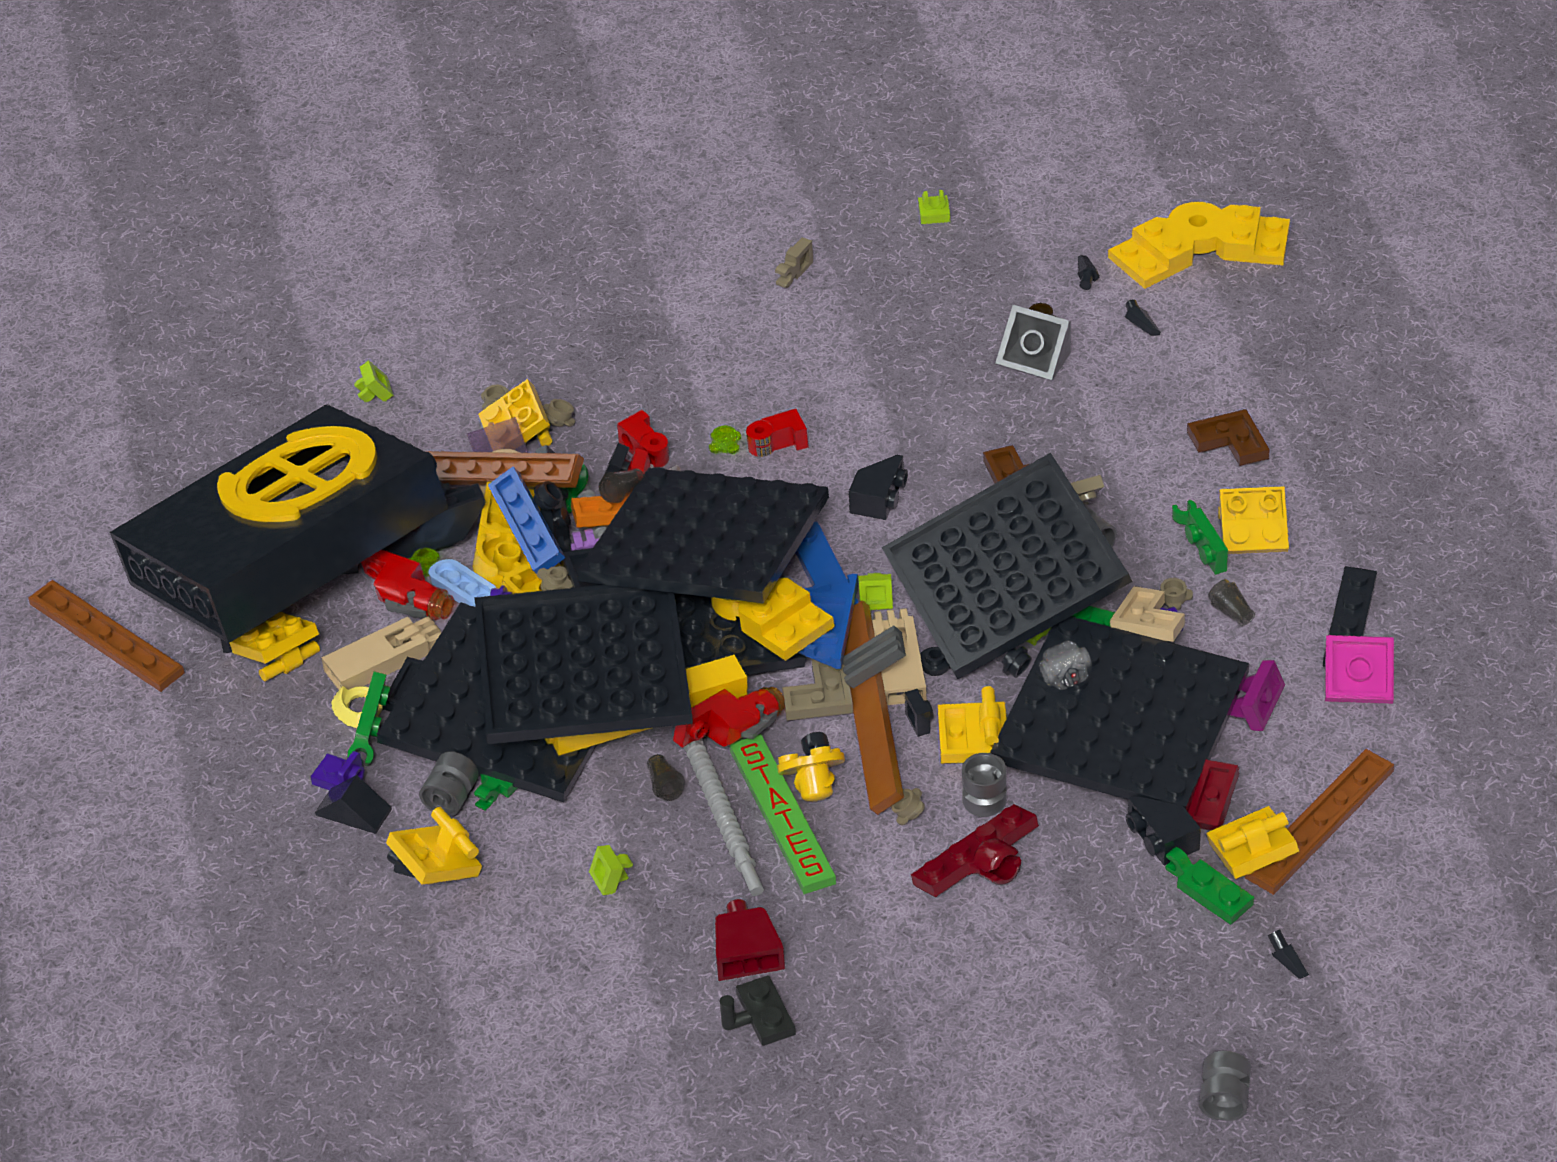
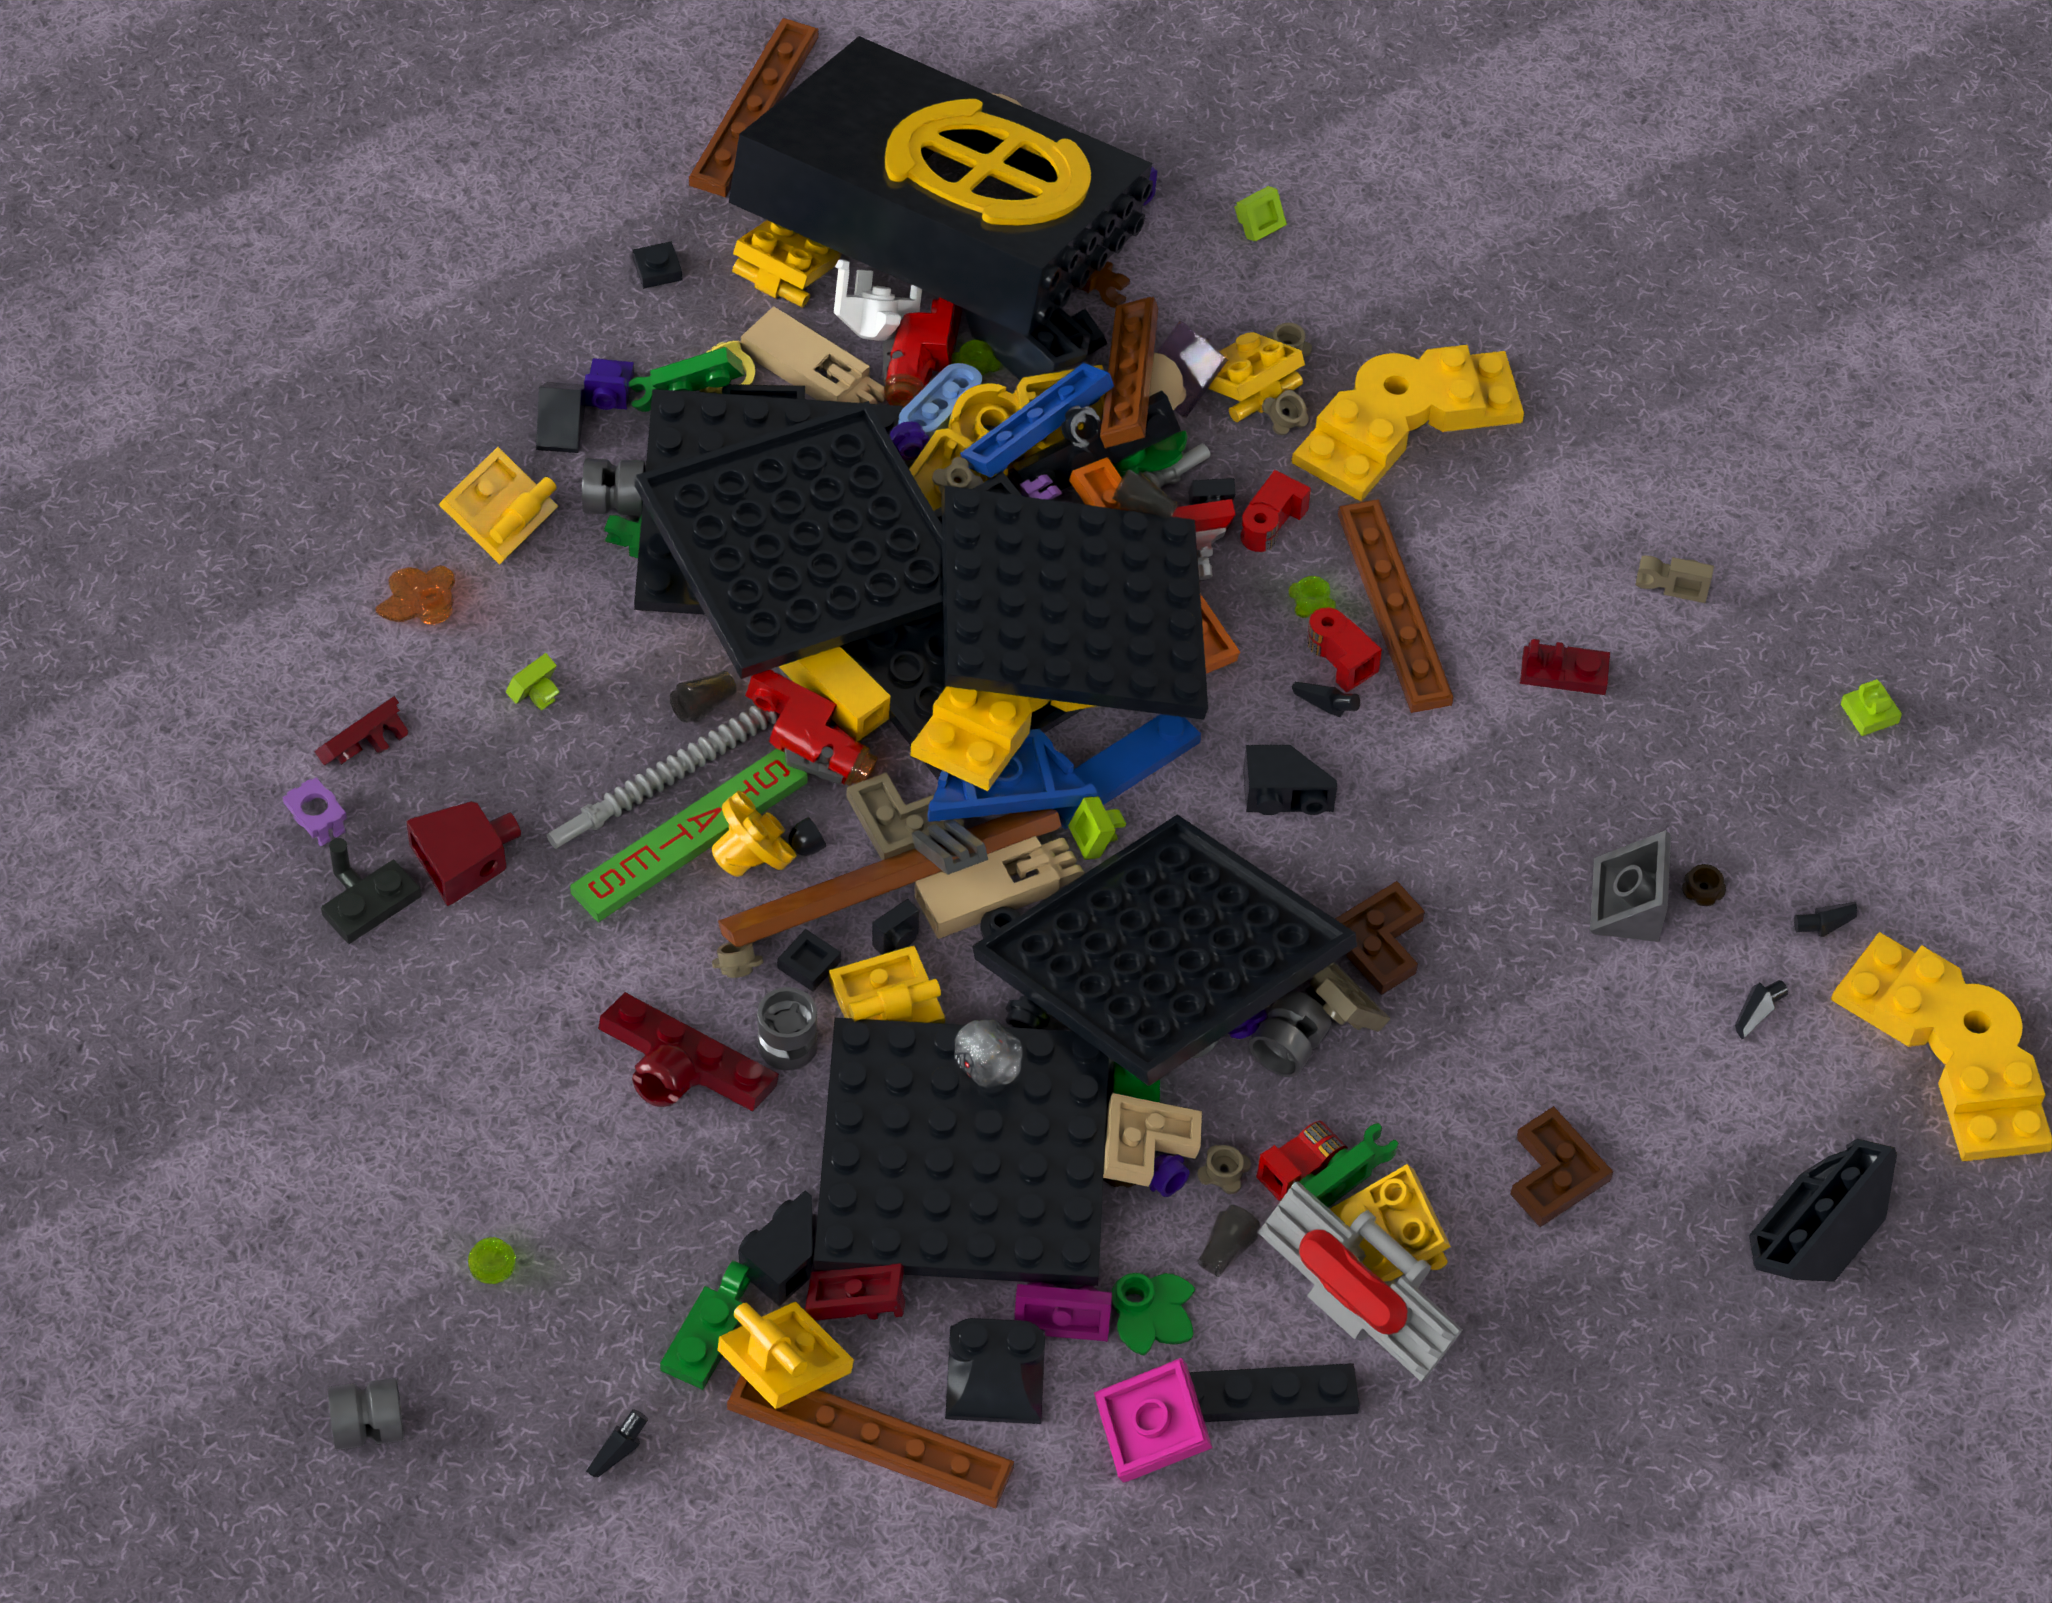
camera: 65 degrees right, 10 degrees up
(234, 723) = (657, 265): none -> black plate
(359, 602) = (874, 312): none -> white piece
(486, 927) = (419, 595): none -> clear orange plate
(574, 354) = (1395, 393): none -> yellow plate
(609, 982) = (371, 726): none -> dark red plate
(658, 1032) = (316, 825): none -> medium lavender piece
(746, 403) = (1395, 606): none -> dark orange tile
(813, 453) = (1327, 698): none -> black bar
(839, 336) = (1565, 667): none -> dark red plate
(923, 766) = (809, 960): none -> black plate
(1112, 996) = (491, 1260): none -> clear neon green plate
(1182, 550) = (1298, 1158): none -> red leg
(1260, 648) = (1157, 1315): none -> green plate
(1292, 744) = (995, 1371): none -> black slope
(1299, 542) = (1351, 1293): none -> light grey piece
(1309, 324) = (1826, 1214): none -> black wedge

